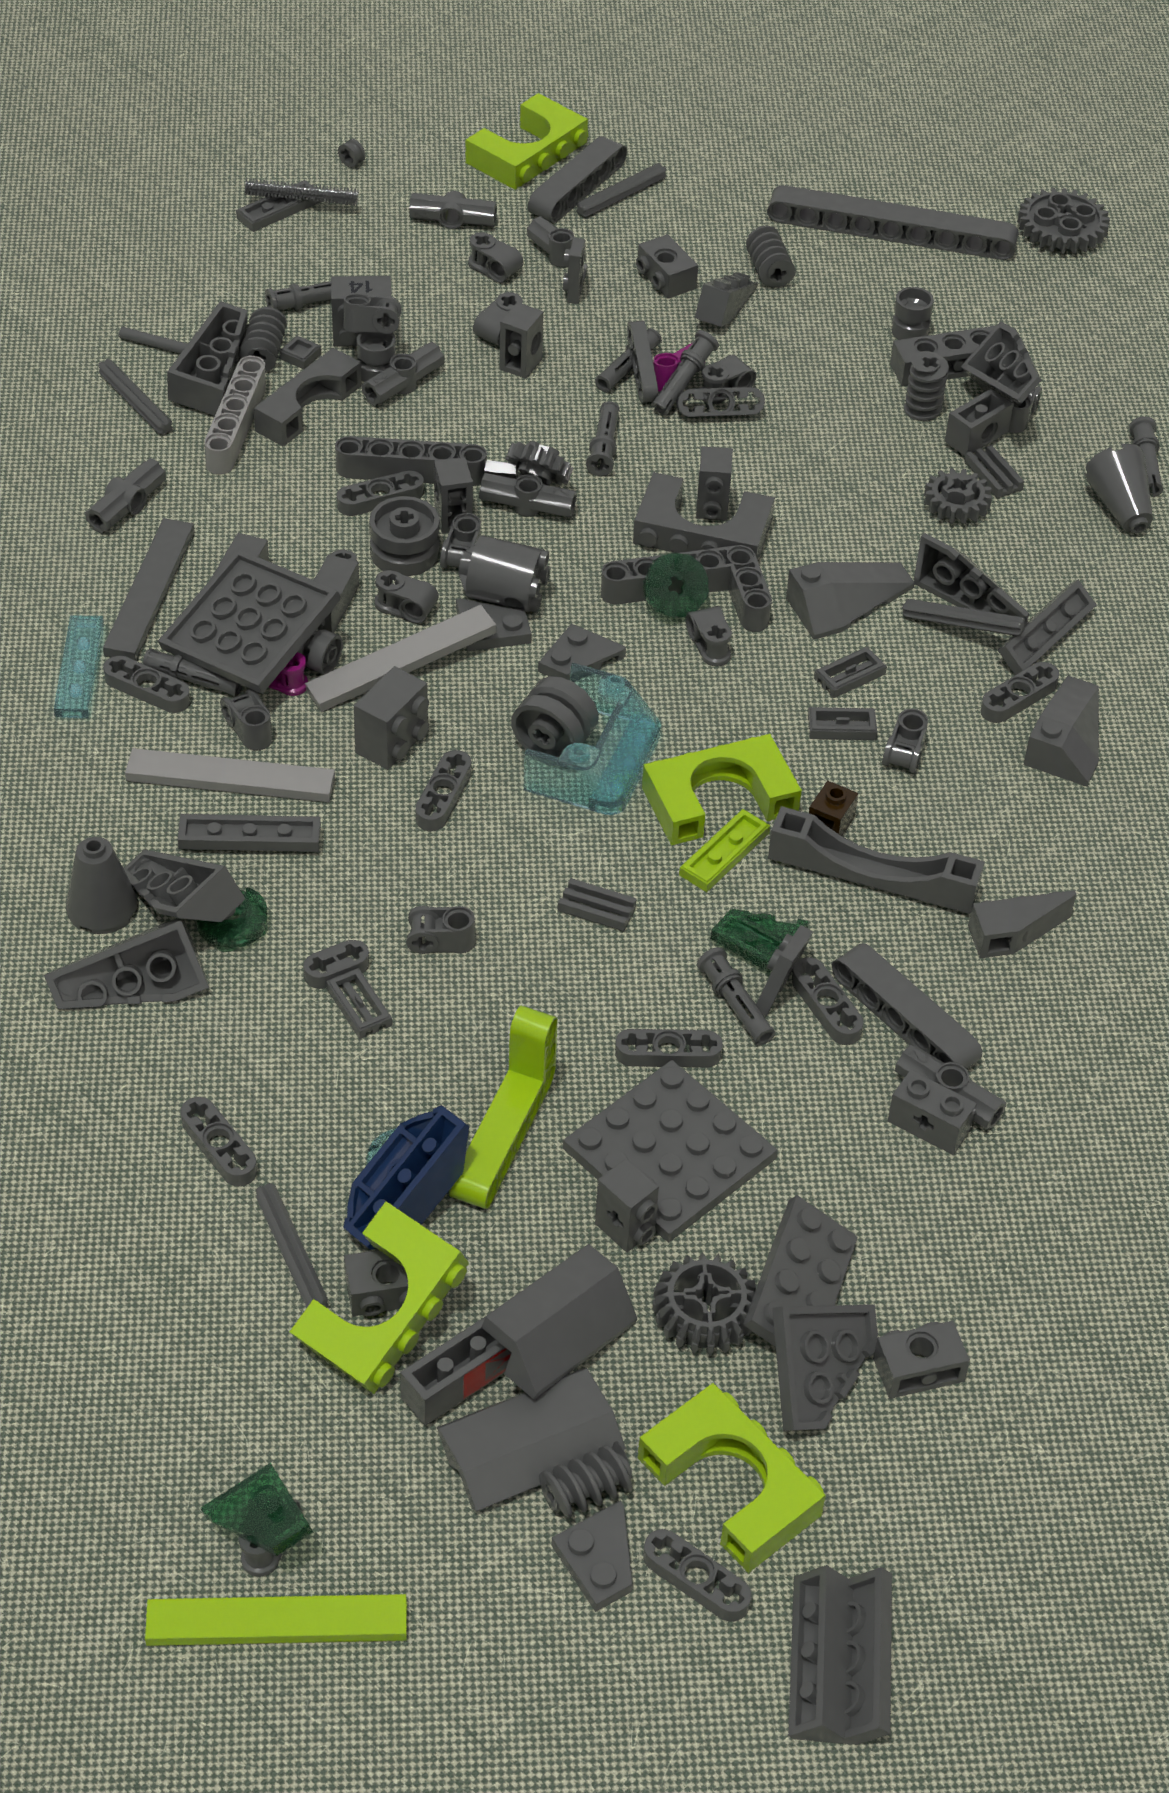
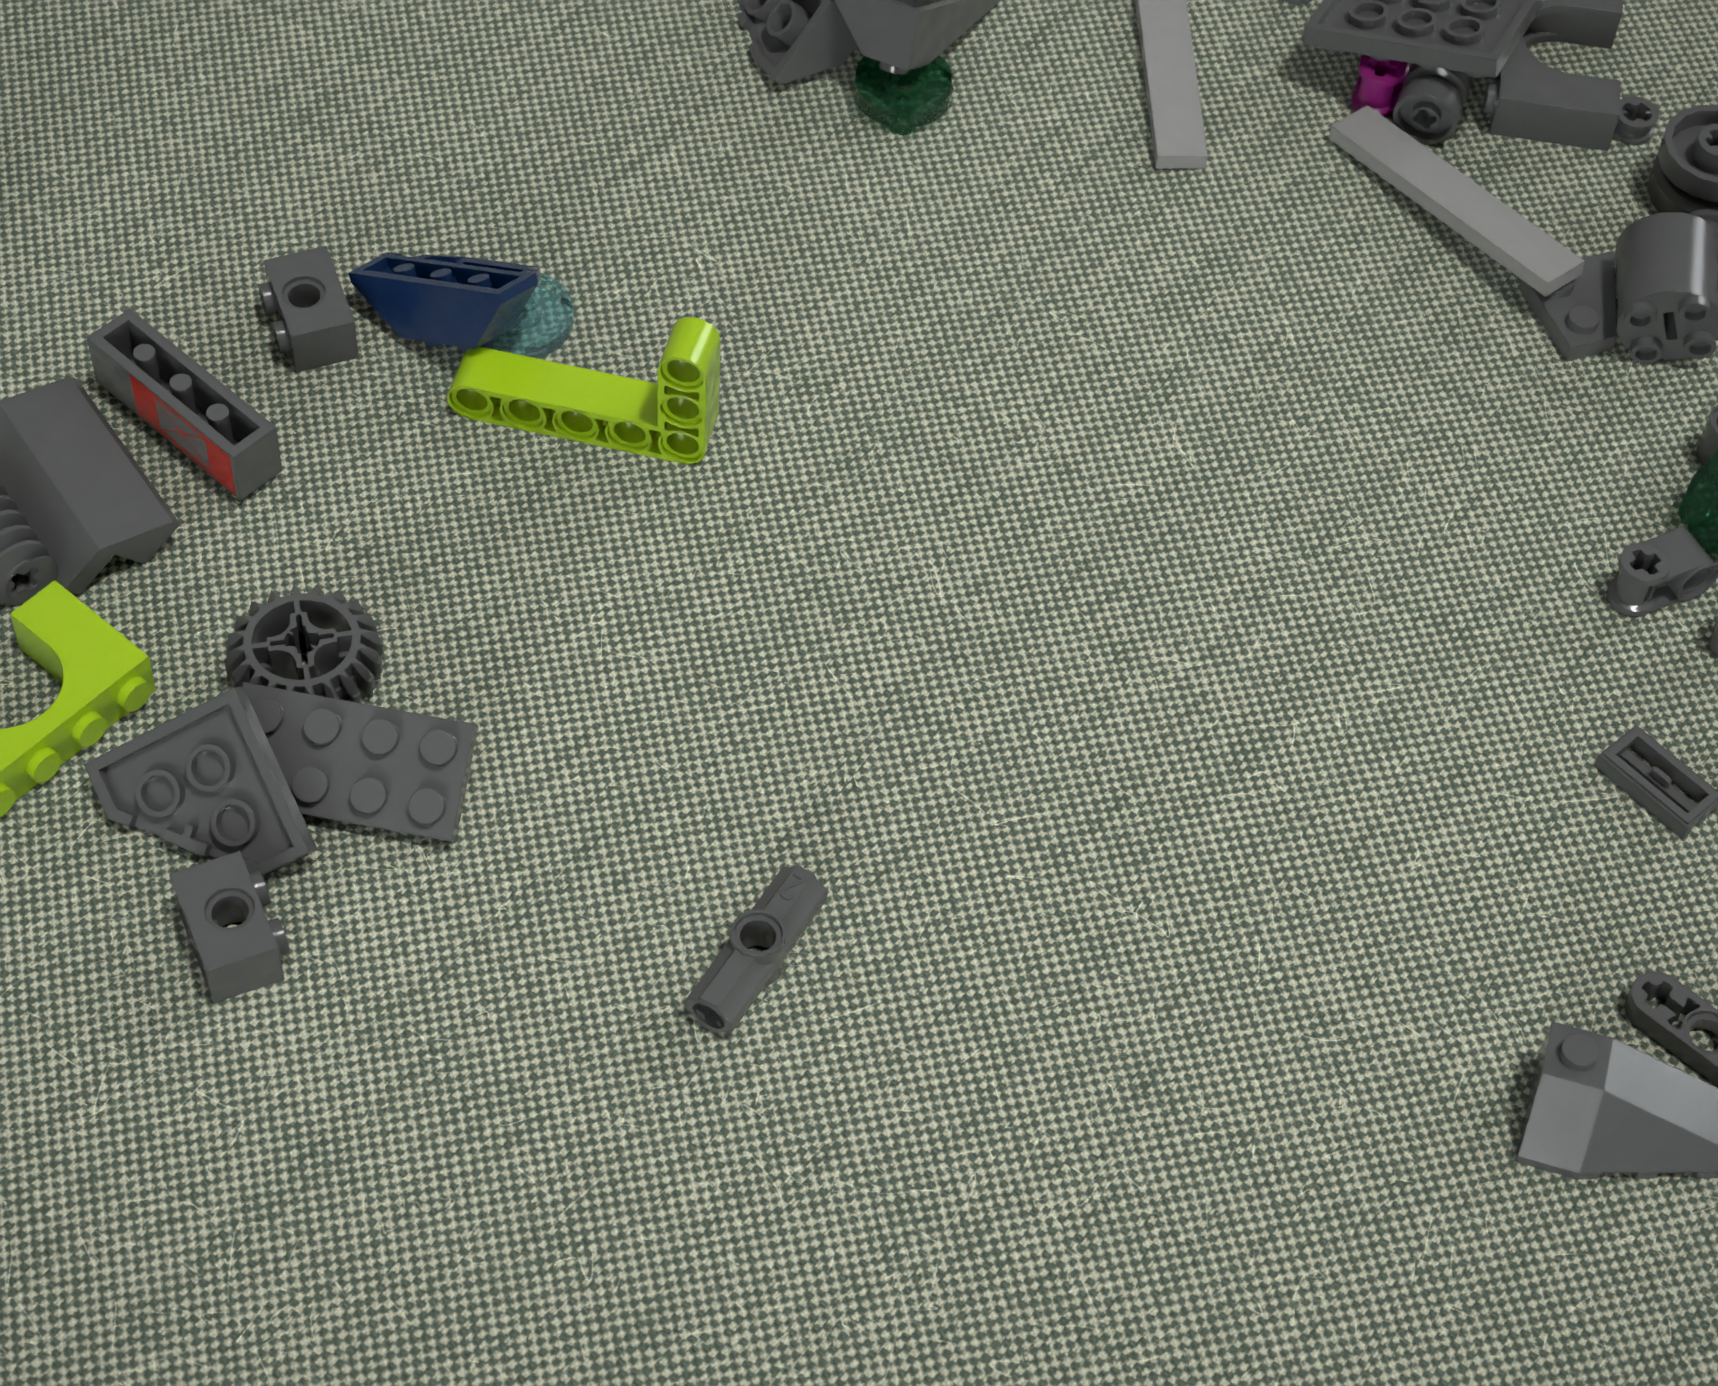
camera: 80 degrees right, 5 degrees up
(218, 1156) = (513, 145): dark grey beam -> none
(248, 719) = (1273, 56): dark grey piece -> none
(249, 832) = (1060, 85): dark grey plate -> none
(290, 1245) = (365, 214): dark grey axle -> none
(335, 962) = (842, 209): dark grey beam -> none
(370, 1023) = (793, 241): dark grey tile -> none
(373, 1351) = (290, 314): lime arch -> none
(391, 718) = (1307, 186): dark grey brick -> none
(406, 598) = (1587, 187): dark grey piece -> none
(444, 802) = (1230, 272): dark grey beam -> none
(444, 928) = (930, 304): dark grey piece -> none
(554, 716) = (1361, 369): dark grey wheel -> none
(561, 1320) = (233, 473): dark grey slope -> none
(578, 647) = (1555, 413): dark grey wing -> none
(598, 900) = (1042, 449): dark grey tile -> none
(603, 774) = (1349, 464): clear light blue windscreen -> none
(627, 1205) = (444, 534): dark grey brick -> none
(643, 1058) = (767, 607): dark grey beam -> none
(679, 1141) = (587, 607): dark grey plate -> none
(724, 850) = (1195, 632): lime tile -> none
(729, 985) = (908, 647): dark grey pin -> none
(749, 762) = (1306, 546): lime arch -> none
(753, 935) = (1015, 681): clear green wing -> none
(782, 966) = (948, 702): dark grey wing -> none
(827, 1015) = (899, 804): dark grey beam -> none
(835, 806) = (1312, 761): dark brown brick -> none
(848, 723) = (1540, 812): dark grey tile -> none
(904, 1006) = (904, 885): dark grey beam -> none
(907, 740) = (1506, 859): dark grey piece -> none
(931, 1112) = (694, 919): dark grey brick -> none
(940, 879) = (1204, 820): dark grey arch -> none
(1013, 923) = (1127, 1031): dark grey slope -> none

